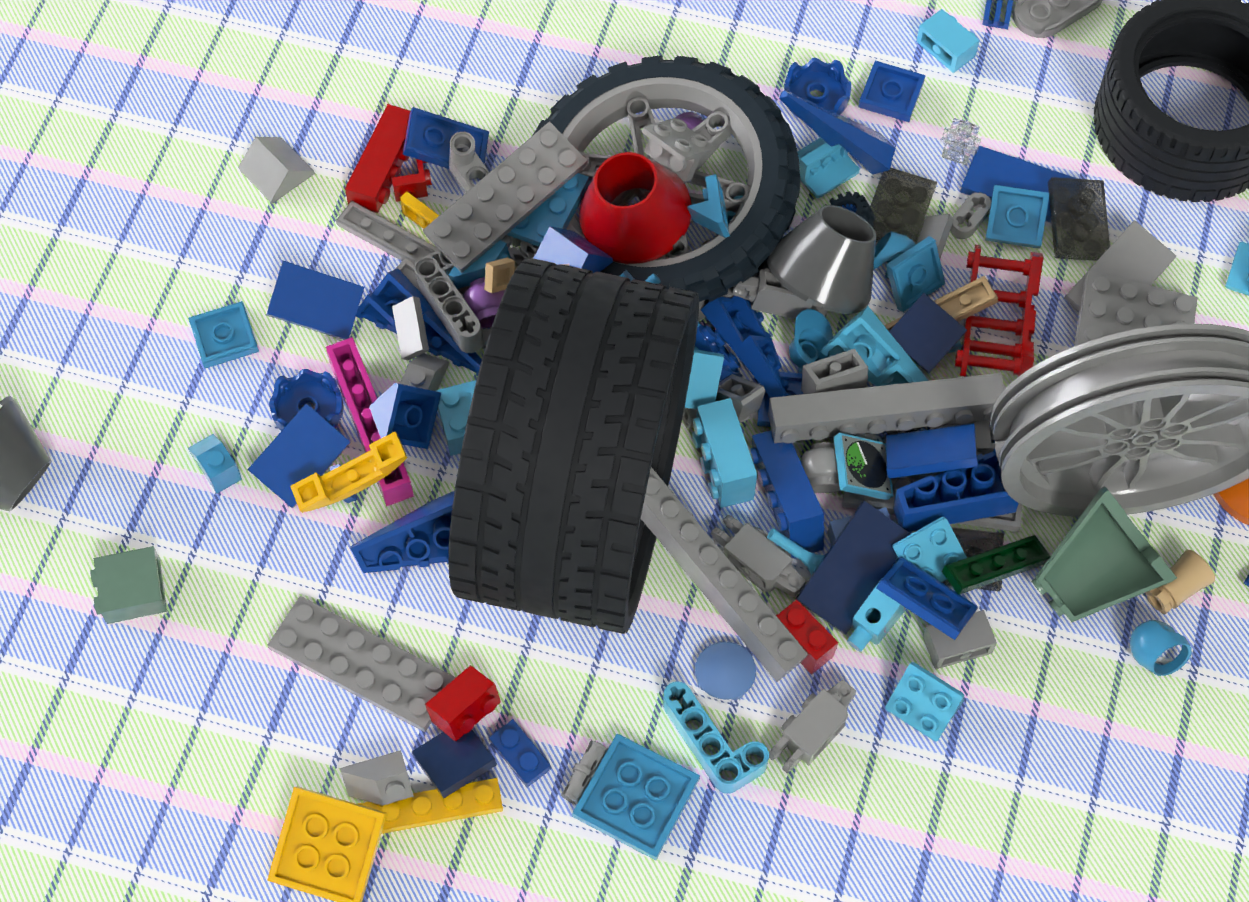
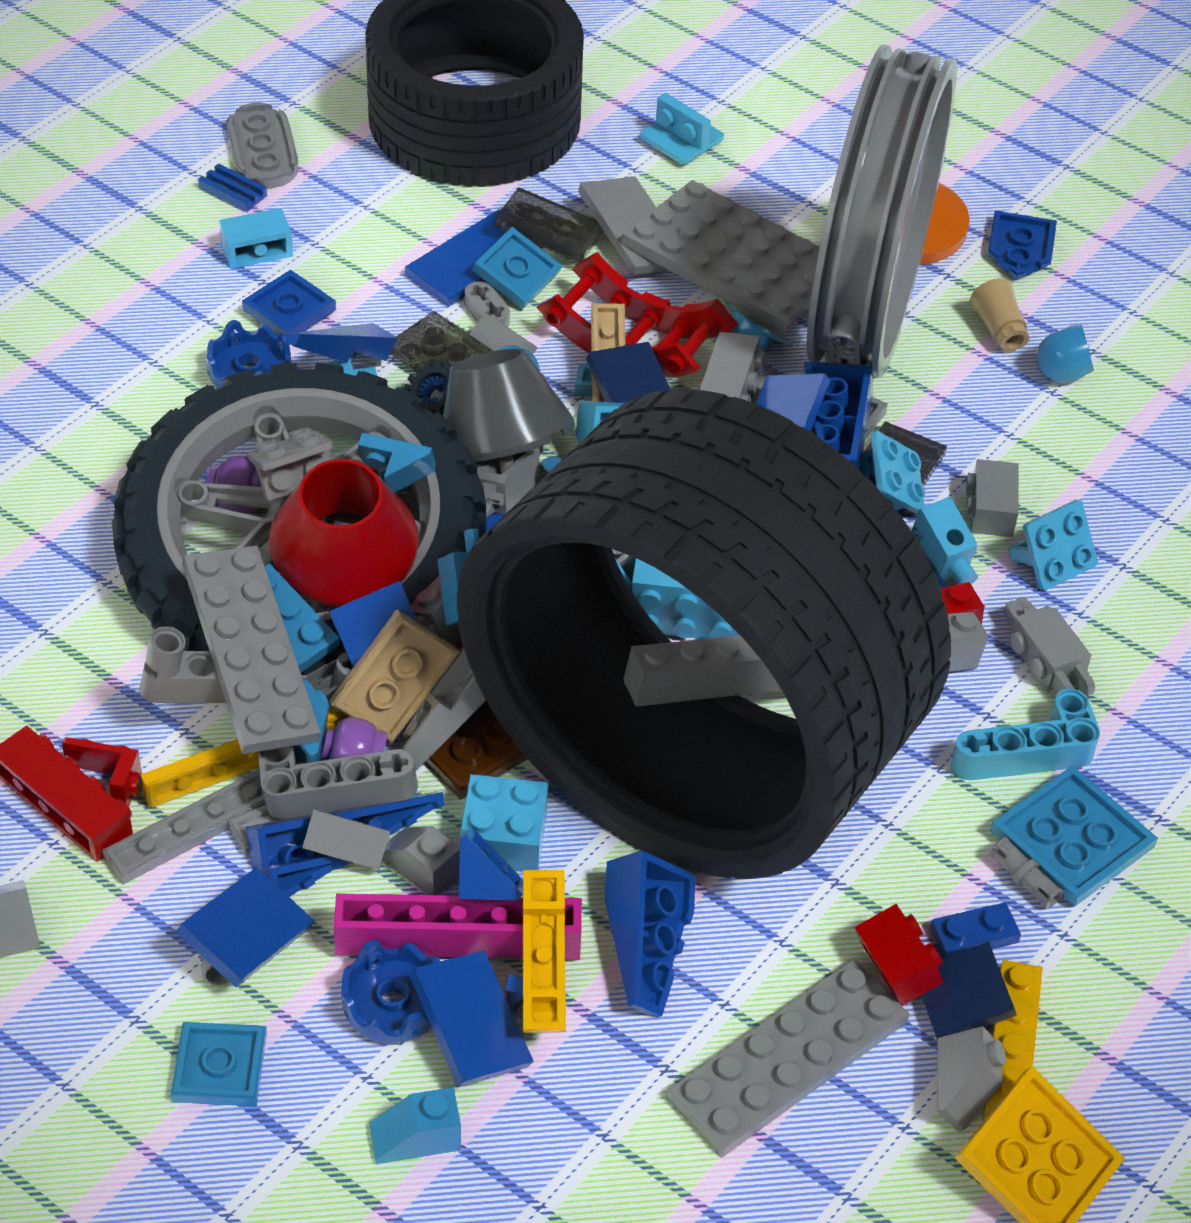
camera: 70 degrees left, 15 degrees down
(430, 137) = (88, 714): blue tile -> none
(498, 274) = (344, 705): tan plate -> none
(725, 670) = (957, 709): medium blue dish -> none
(915, 273) = (547, 361): dark azure tile -> none
(927, 597) = (957, 482): blue tile -> none
(960, 141) = (394, 274): clear brick -> none
(996, 564) = (927, 432): dark green tile -> none
(1100, 562) = (963, 349): sand green cone -> none

